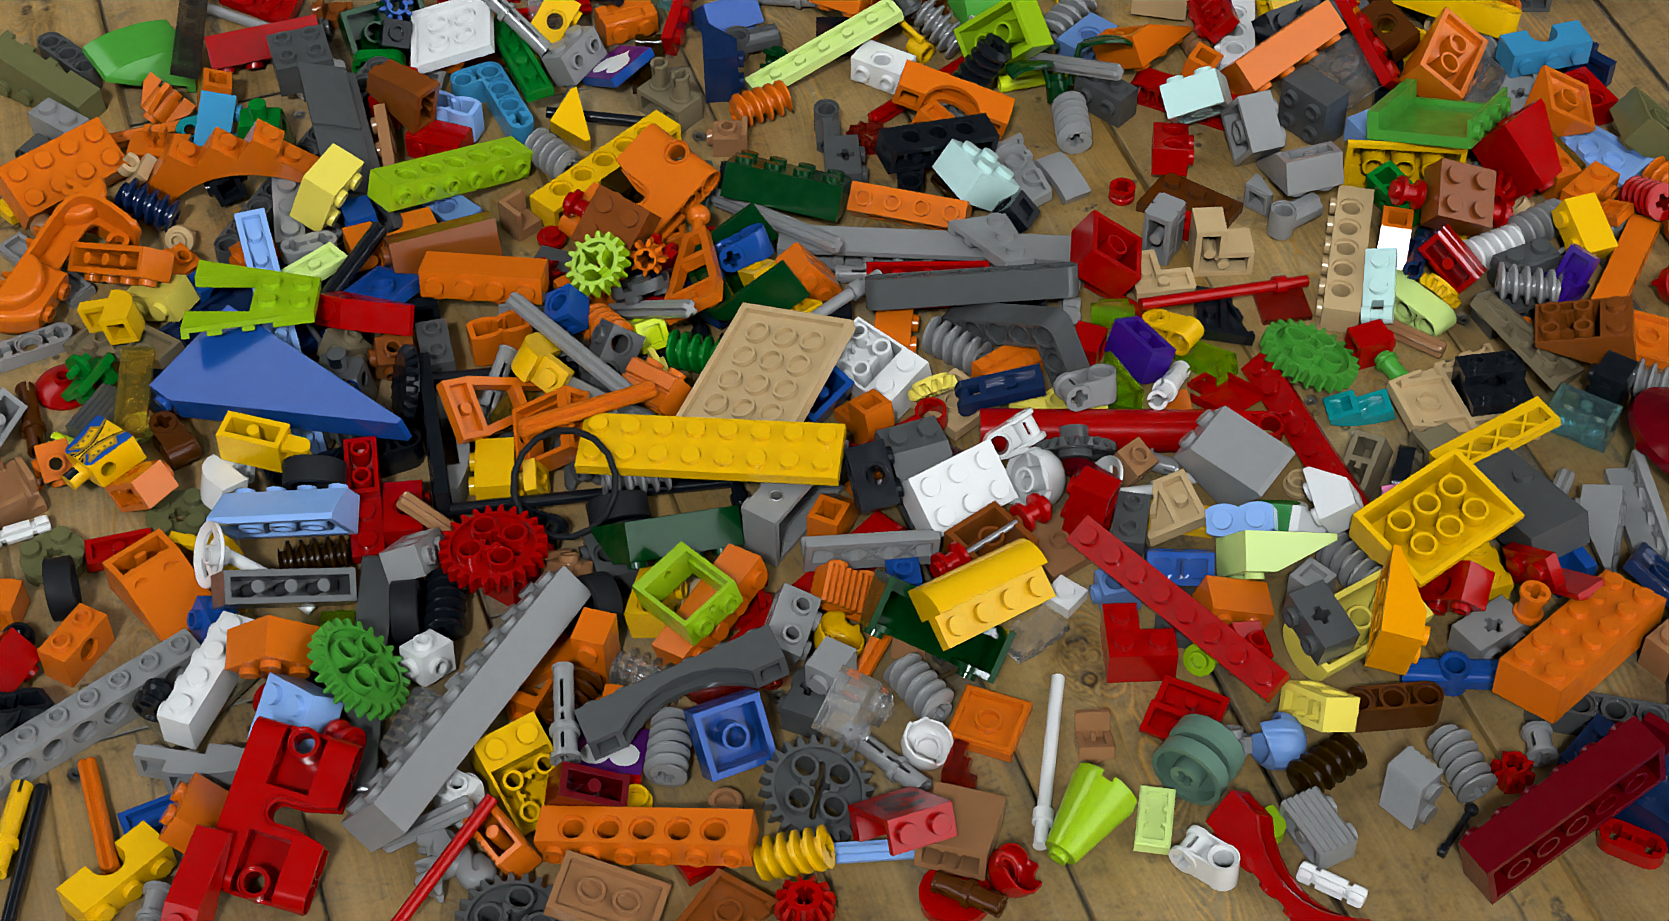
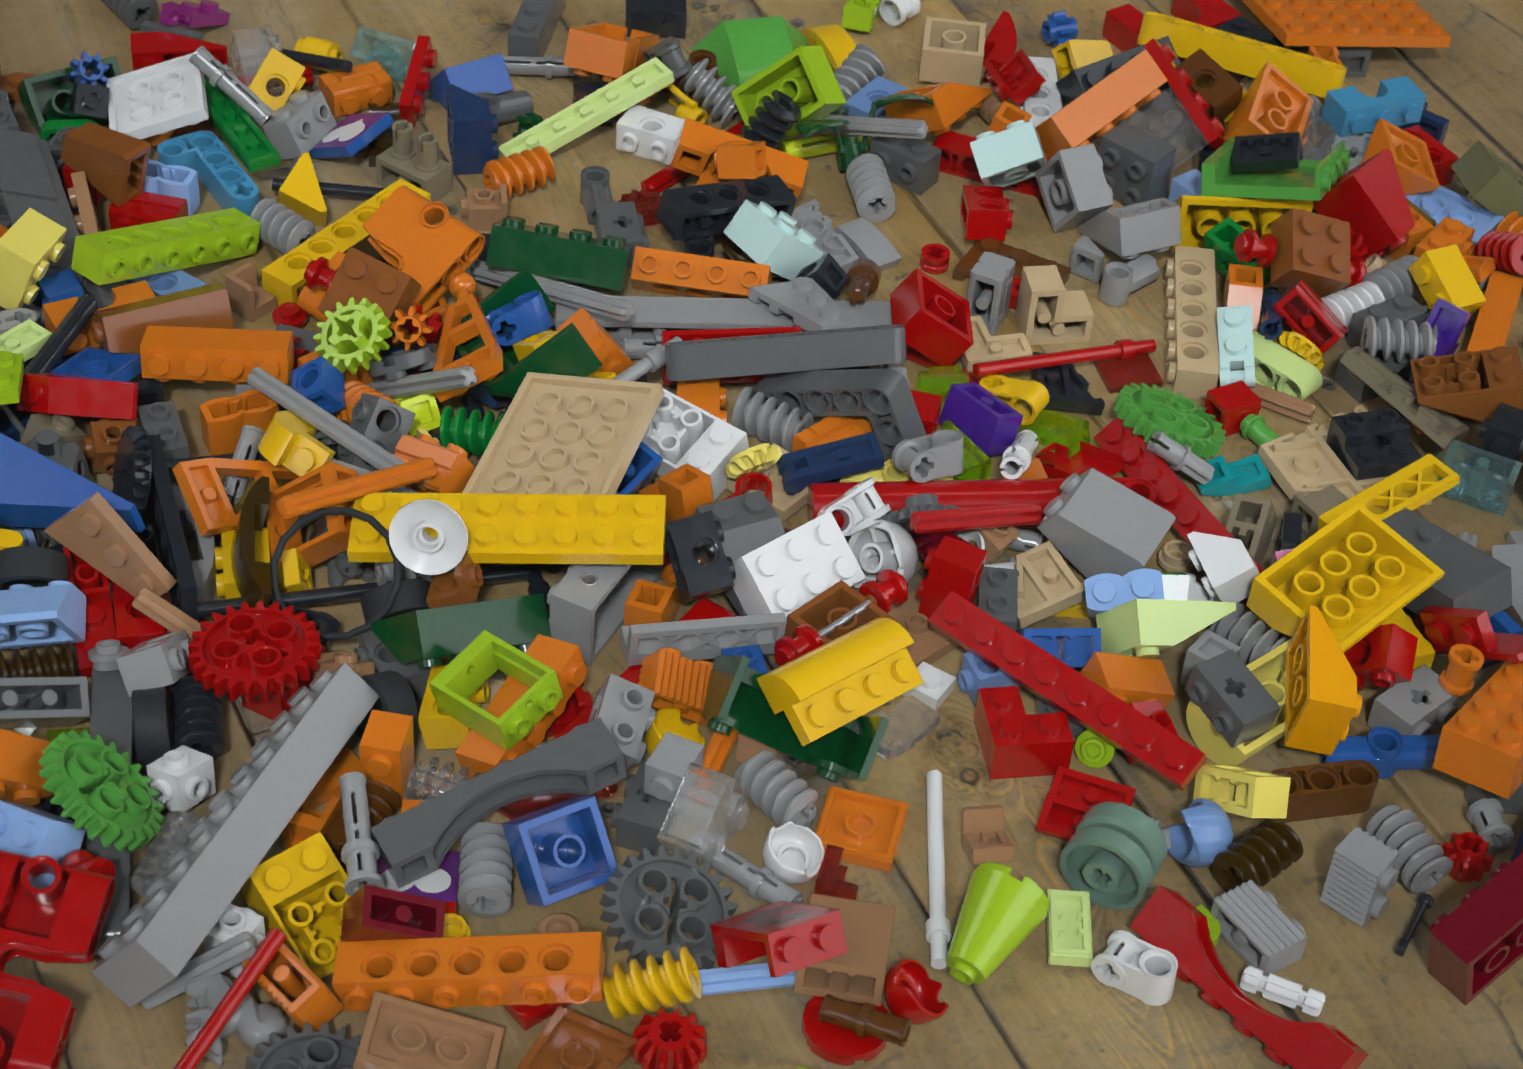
camera: 10 degrees left, 5 degrees down
(373, 546) = (105, 654): none -> light grey plate
(380, 455) = (110, 546): none -> medium nougat wing
(498, 483) = (251, 576): none -> dark brown slope
(634, 467) = (418, 549): none -> white dish
(664, 498) = (456, 586): none -> dark orange bracket
(952, 99) = (740, 159): none -> orange brick
(1053, 214) = (863, 280): none -> reddish brown piece
(1116, 448) = (975, 518): none -> red axle
(1312, 392) = (1181, 458): none -> light grey axle
(1433, 97) = (1267, 152): none -> black bracket

